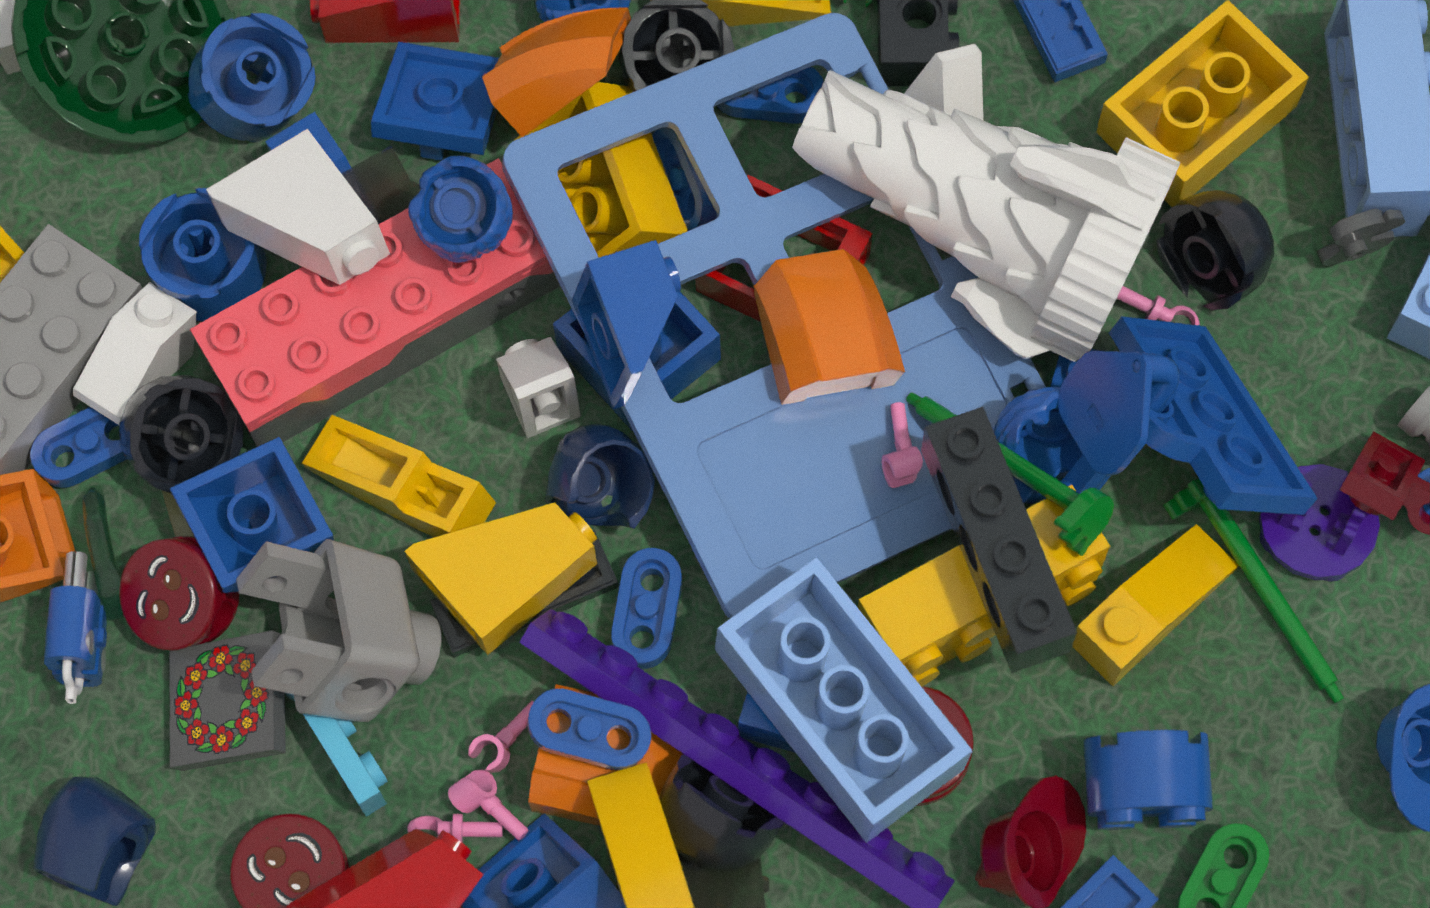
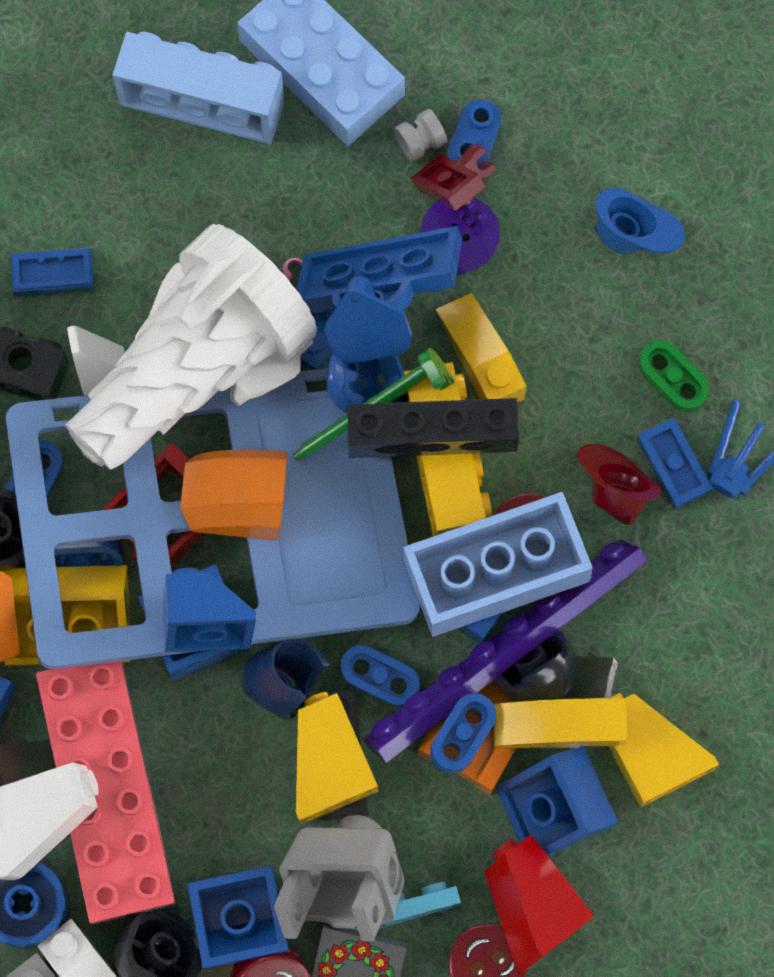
camera: 75 degrees left, 5 degrees up
(397, 479) = (235, 816): yellow slope -> none
(457, 827) = (488, 846): bright pink hand -> none
(461, 209) = (77, 705): blue hair -> none
(480, 790) = (468, 823): bright pink hand -> none
(502, 740) = (435, 795): bright pink hand -> none
(539, 385) = (199, 699): white slope -> none
(905, 463) = (342, 472): bright pink hand -> none
(1148, 777) = (599, 396): blue brick -> none
(1205, 99) = (151, 197): yellow brick -> none
(1216, 246) = (262, 219): black cylinder -> none
(1261, 581) = (489, 282): green piece -> none
(1360, 235) = (281, 140): dark grey piece -> none

